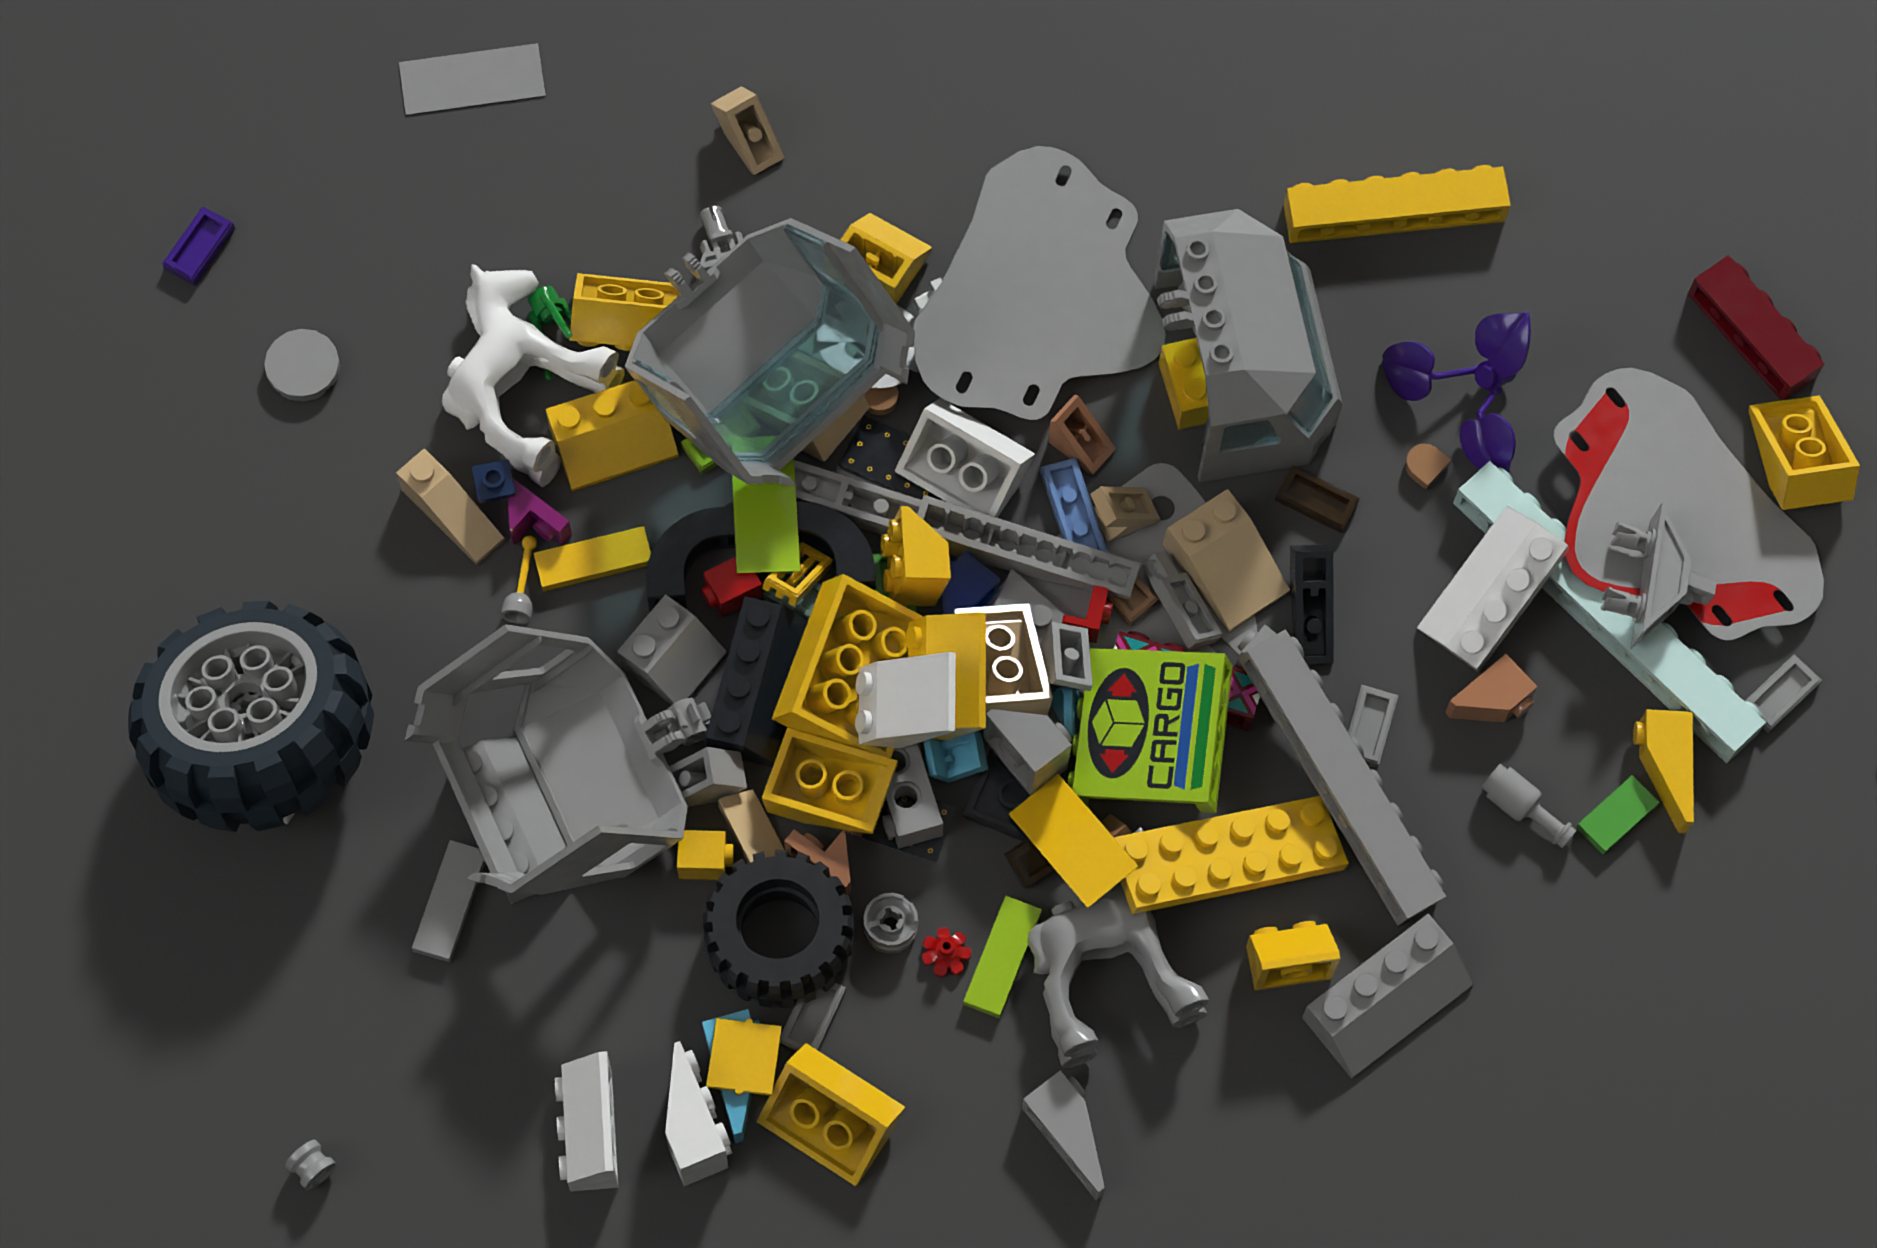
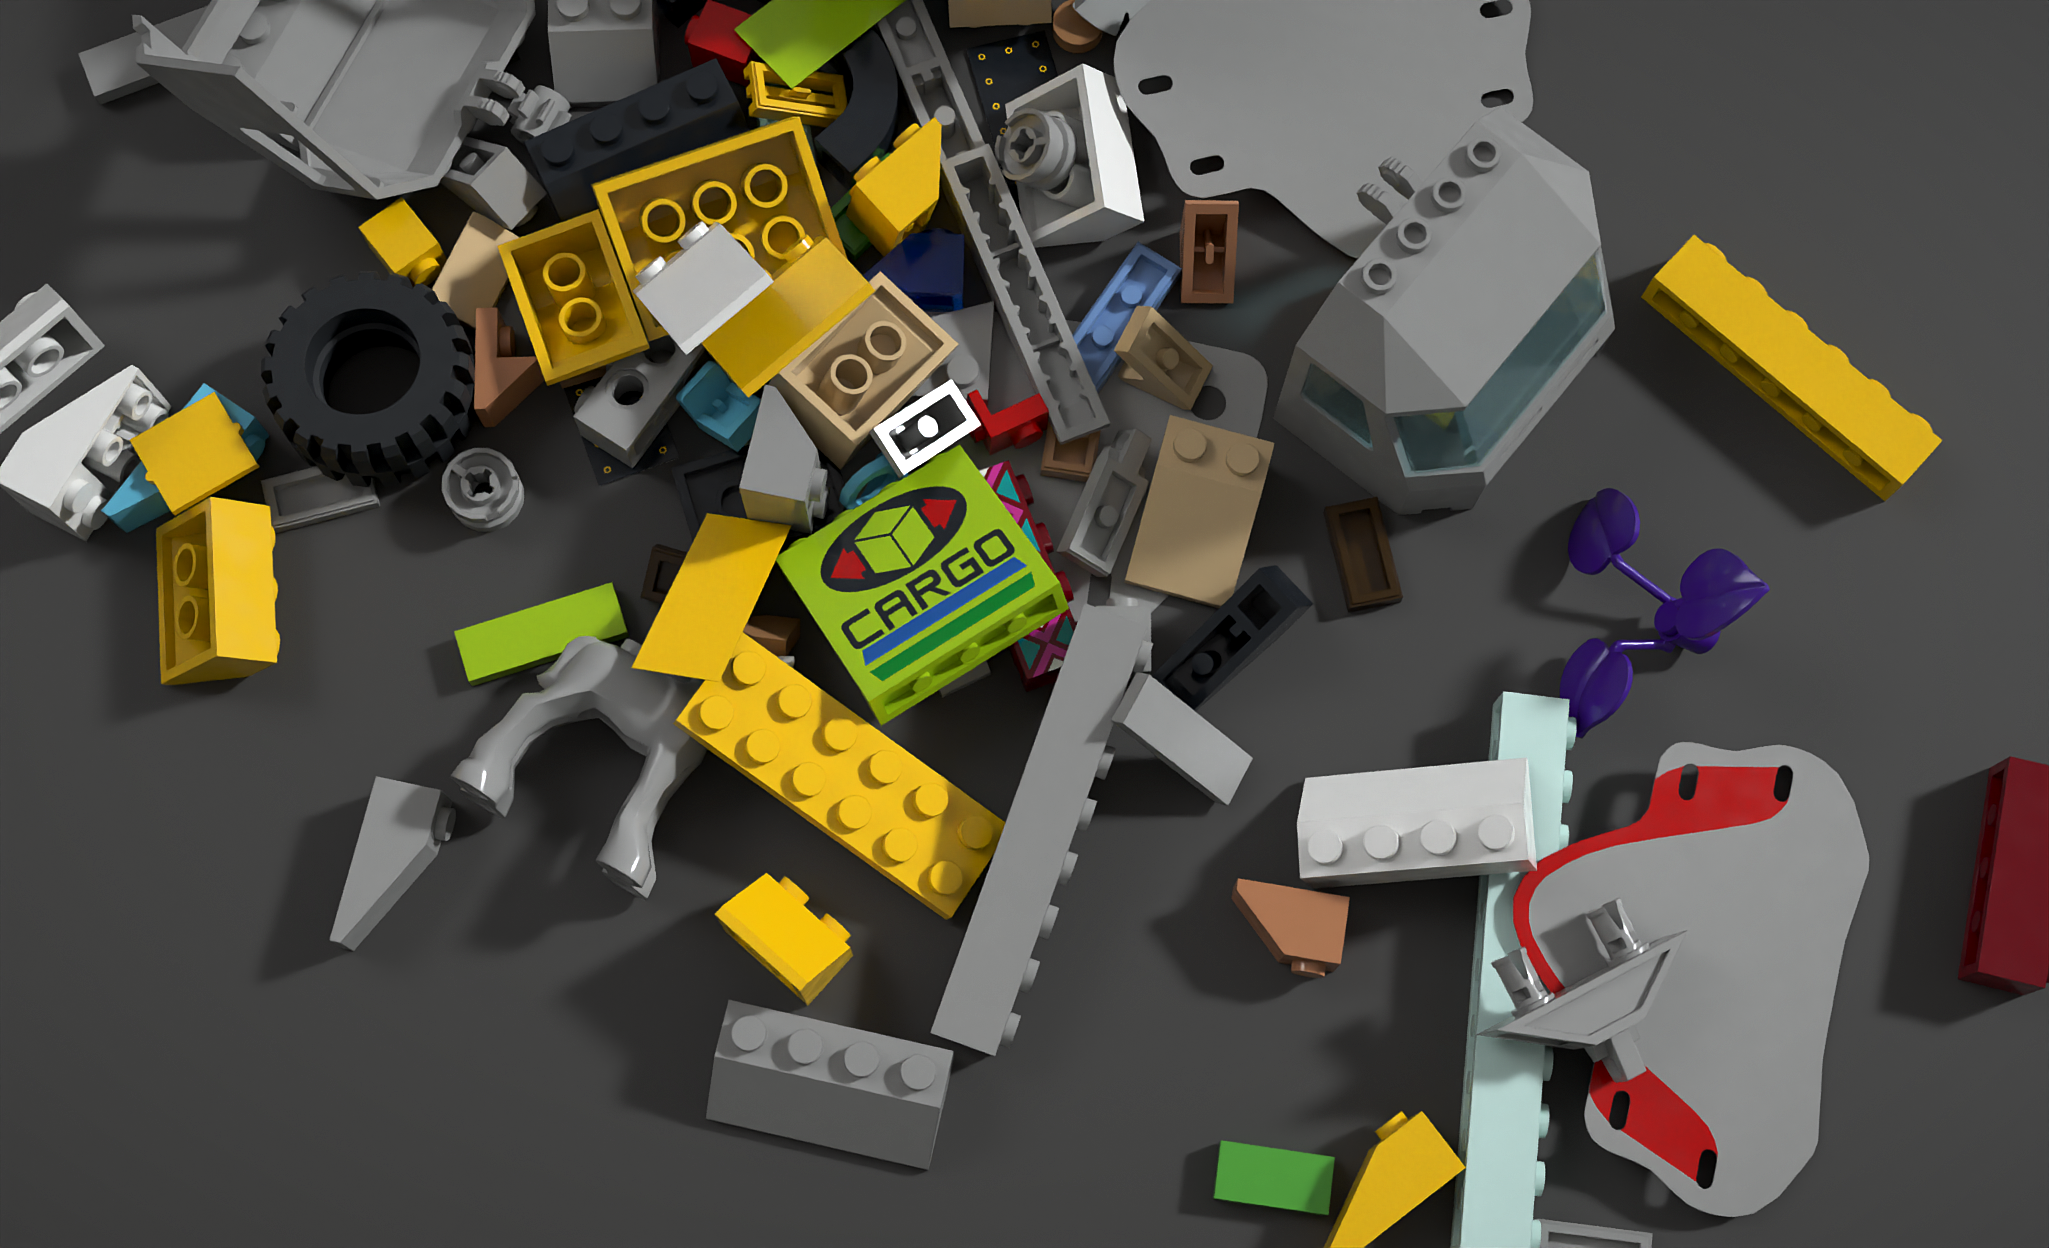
camera: 50 degrees right, 5 degrees up
(946, 952) = (501, 573): red plant -> none
(963, 474) = (1036, 149): none -> light grey wheel
(1352, 666) = (1181, 738): none -> light grey tile
(1372, 722) = (1143, 817): light grey tile -> none
(1425, 464) = (1510, 638): medium nougat tile -> none
(1521, 801) = (1193, 1053): light grey piece -> none
(1804, 453) = (1914, 1051): yellow slope -> none

